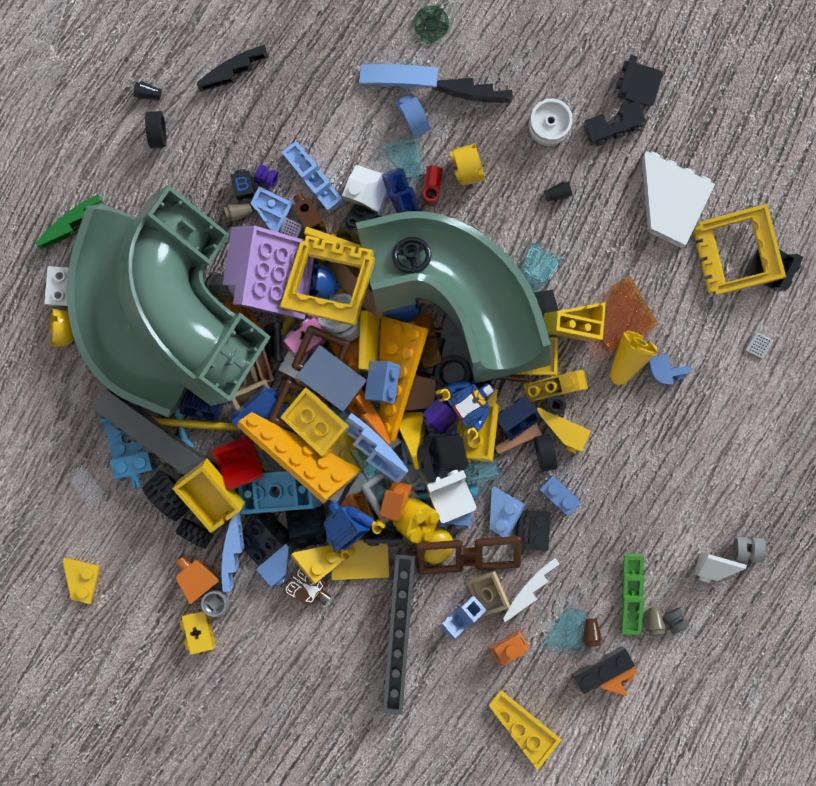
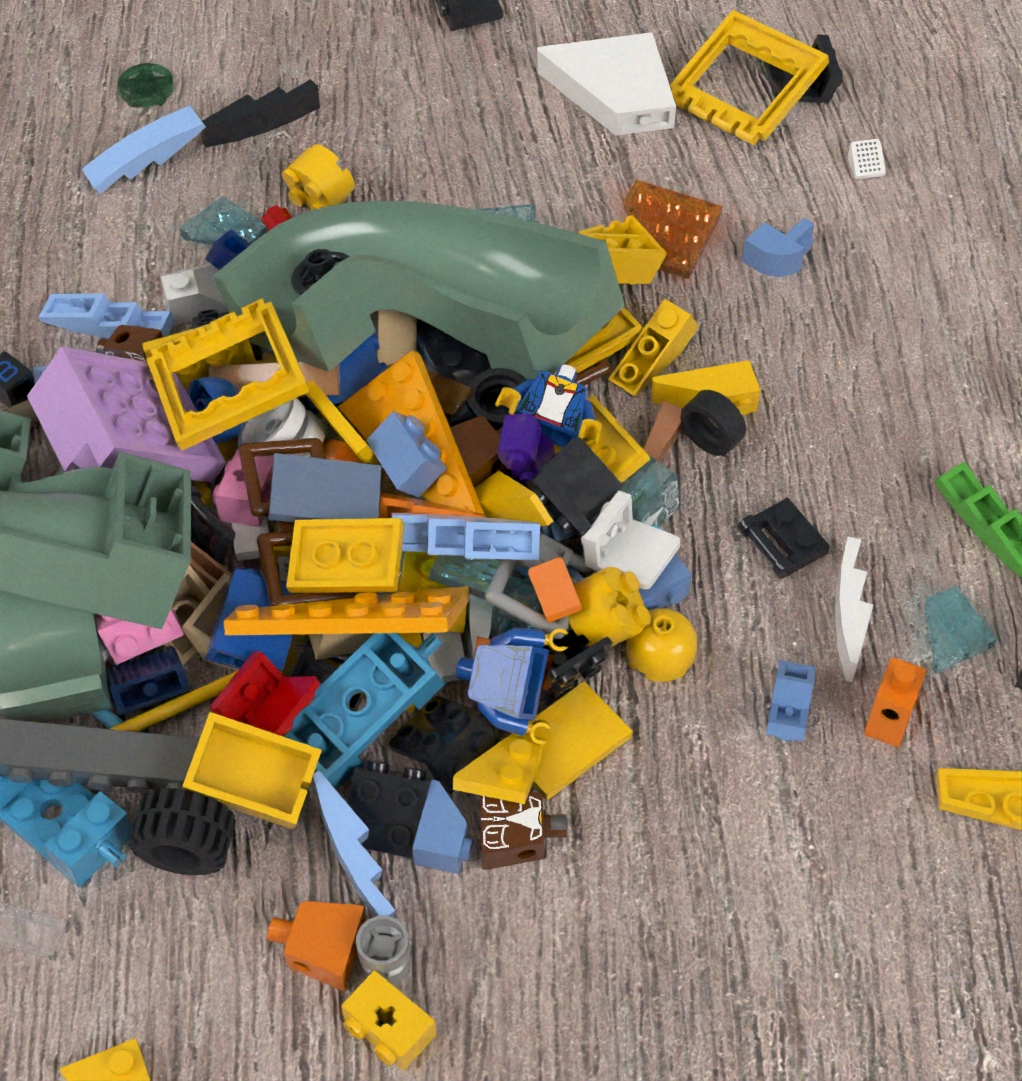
camera: 35 degrees left, 30 degrees down
(194, 533) = (268, 865): black tyre -> none
(265, 176) = (35, 352): dark purple wheel -> none
(399, 633) = (719, 794): dark grey brick -> none
(413, 115) = (200, 172): medium blue brick -> none
(468, 556) = (723, 614): reddish brown bar -> none
(488, 592) = (802, 640): tan slope -> none
(504, 512) = (724, 537): light blue wing -> none
(518, 417) = (640, 405): dark blue brick -> none
(555, 112) = (389, 87): white wheel -> none
(559, 191) = (464, 151): black cone -> none
(559, 401) = (675, 357): black cone -> none
(559, 496) = (780, 466): medium blue brick -> none
(592, 633) = (992, 607): reddish brown cone -> none
(599, 130) = (484, 41): black arch -> none
(630, 357) = (722, 251): yellow cone -> none

